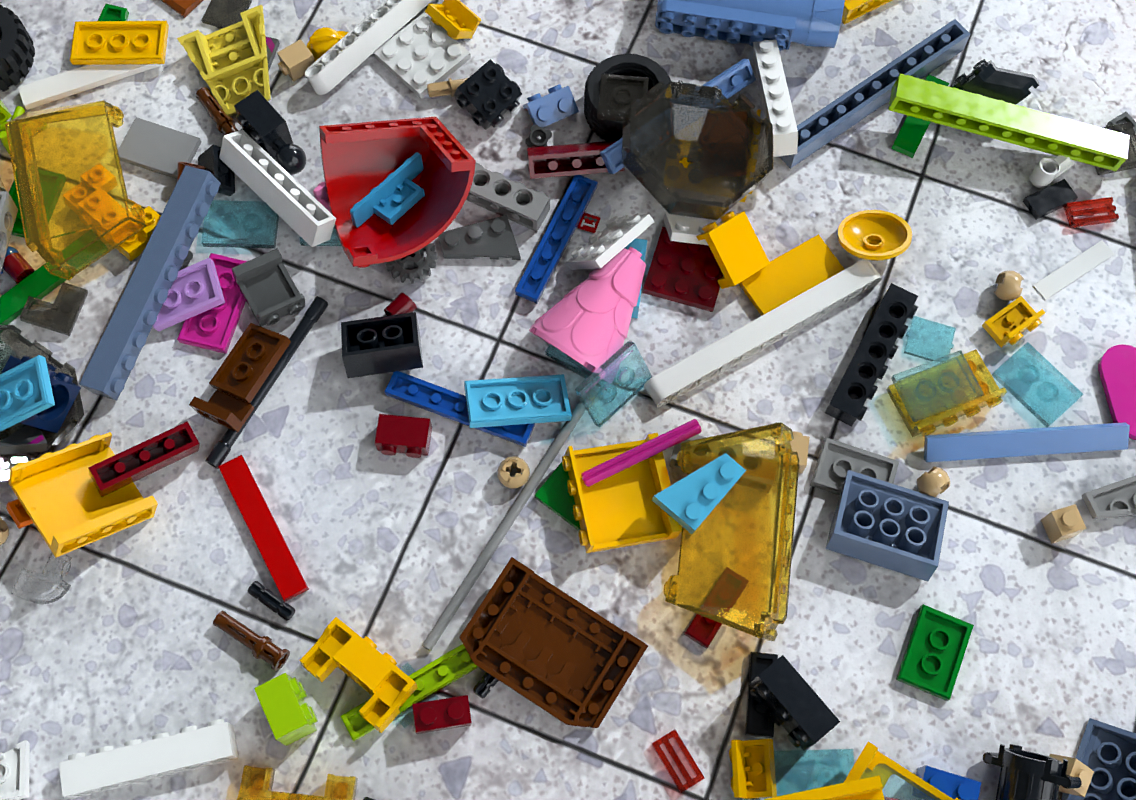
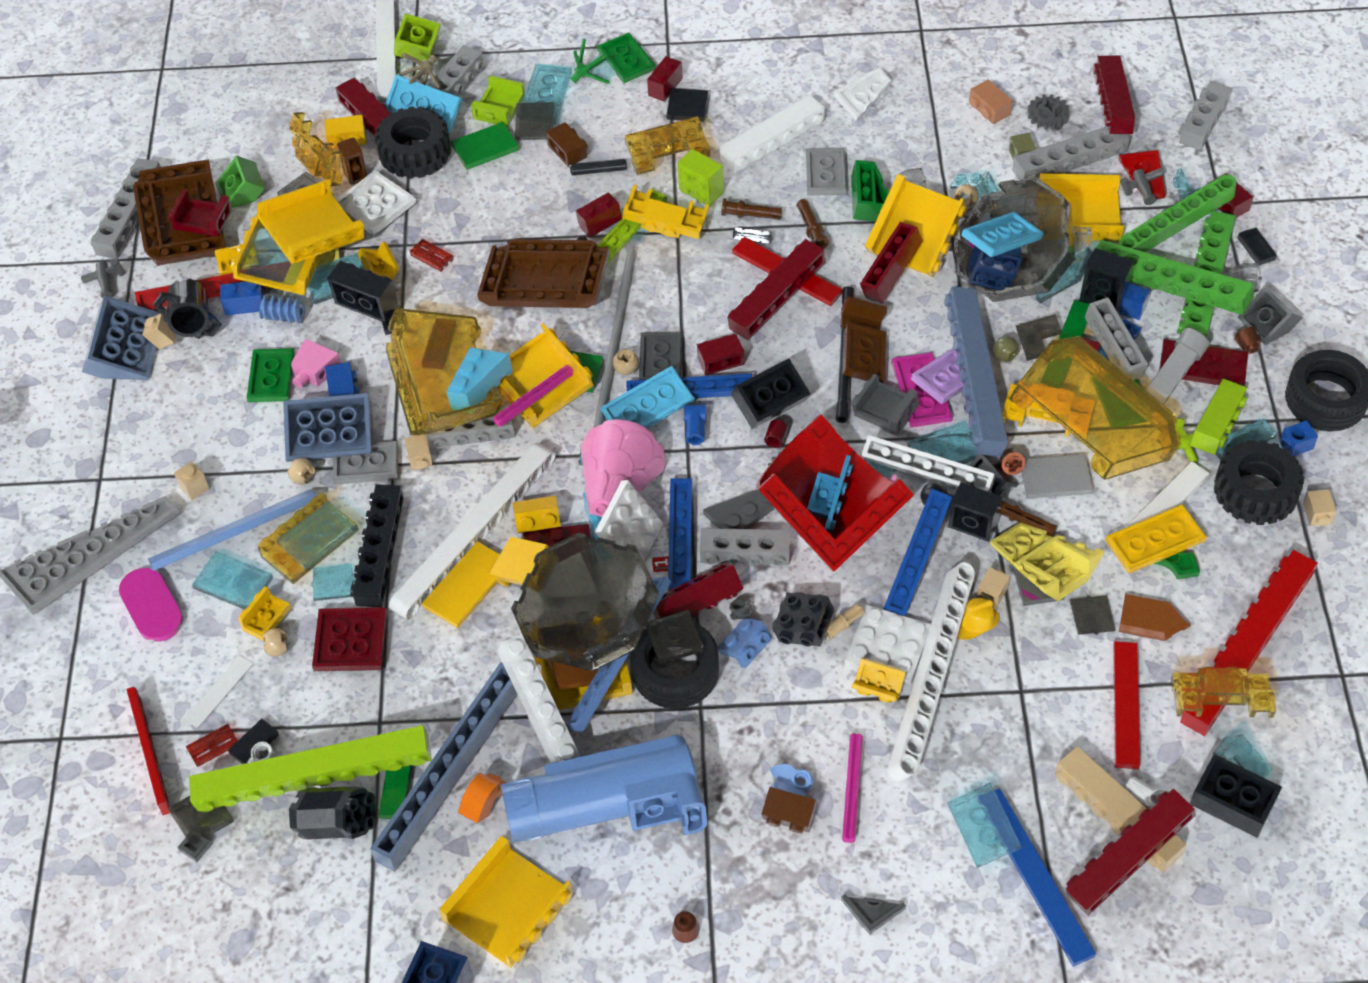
camera: 160 degrees right, 15 degrees down
(98, 589) = (867, 191): none -> green wedge
(101, 303) = (1005, 349): none -> olive piece
(122, 667) = (826, 171): none -> light grey tile
(195, 570) = (814, 230): none -> reddish brown pin
(292, 491) = (776, 289): none -> dark red brick
(344, 107) = (917, 553): none -> blue plate
(470, 468) = (659, 352): none -> dark grey tile
(474, 364) = (695, 419): none -> blue piece
(614, 383) = (576, 438): clear light blue tile -> none
(694, 312) = (536, 514): none -> yellow brick
(851, 54) = (480, 796): none -> orange brick
(854, 586) = (341, 380): none -> blue brick
(874, 235) = (410, 616): yellow dish -> none
(880, 636) = (311, 362): none -> bright pink torso
(900, 744) = (281, 310): none -> medium blue piece
(932, 264) = (349, 639): none -> dark red plate

